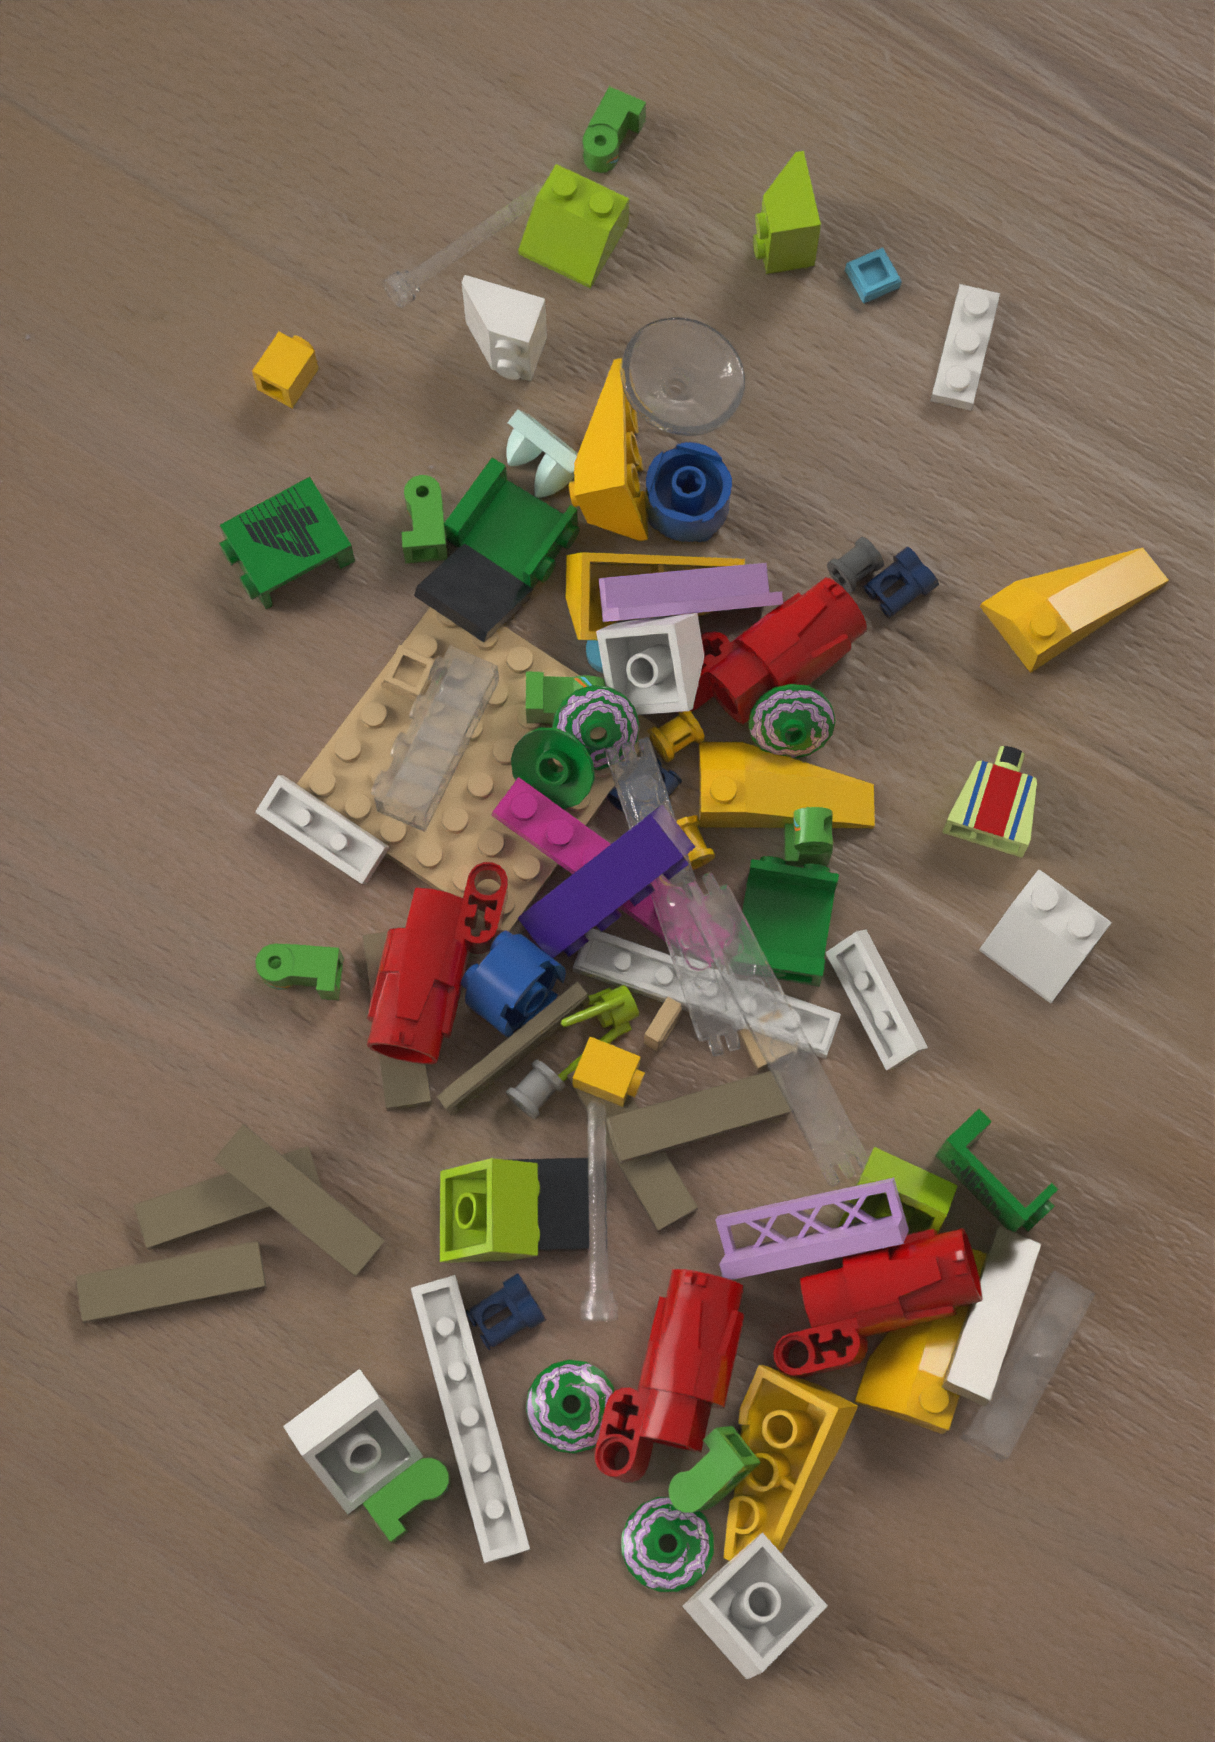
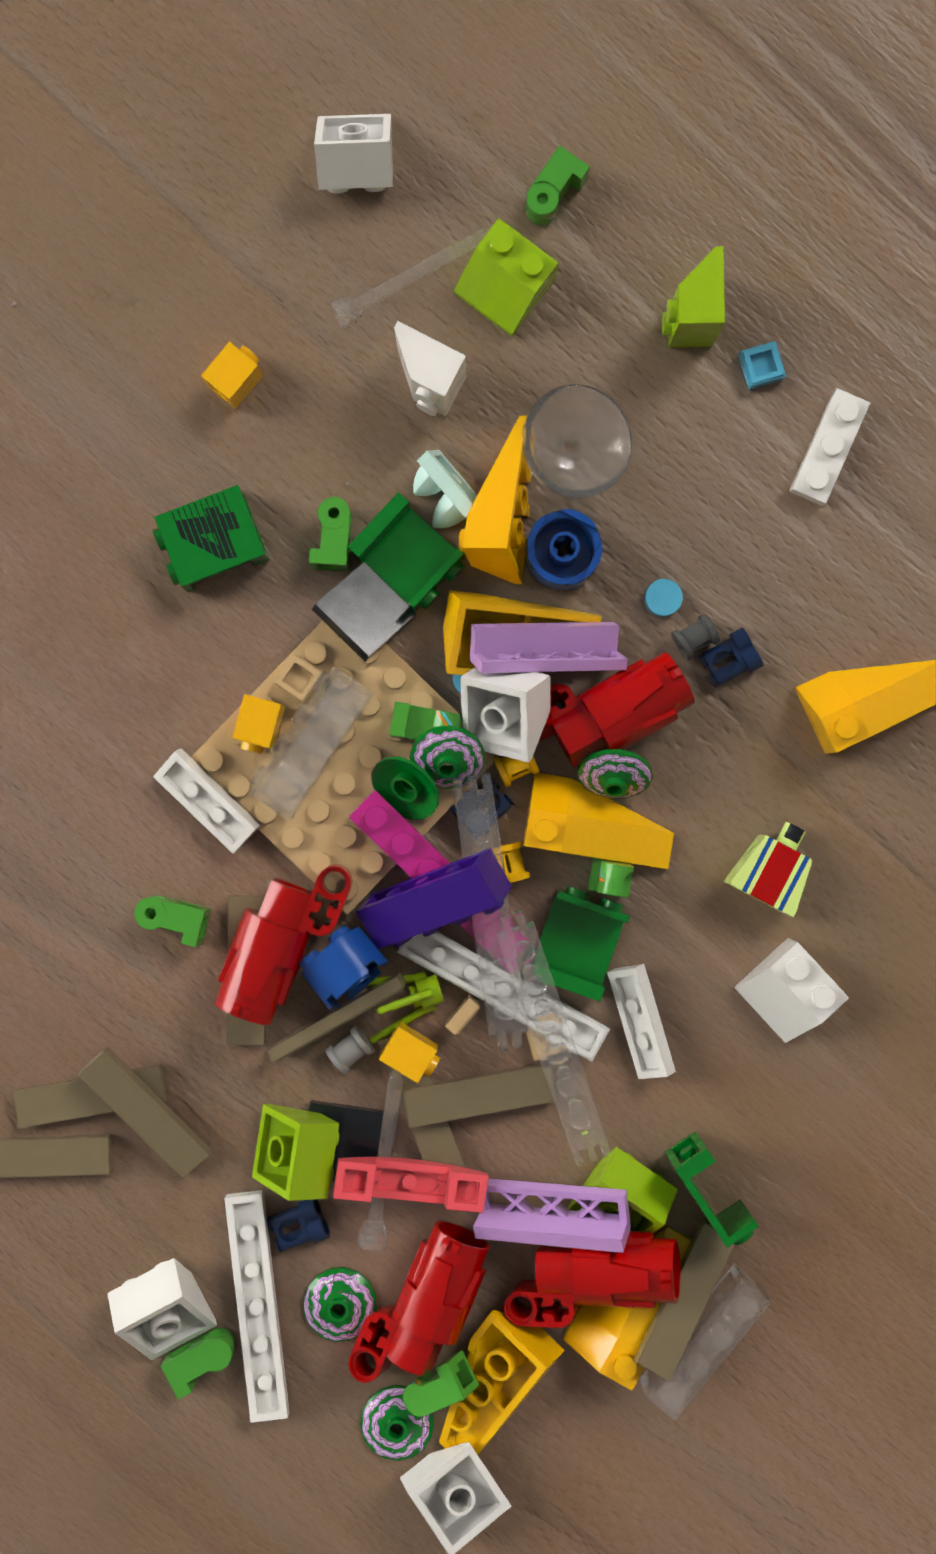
camera: 10 degrees right, 15 degrees up
(371, 725) = (258, 723): none -> yellow brick
(387, 128) = (354, 152): none -> white slope
(634, 1225) = (411, 1181): none -> coral slope
(811, 531) = (663, 598): none -> medium azure tile

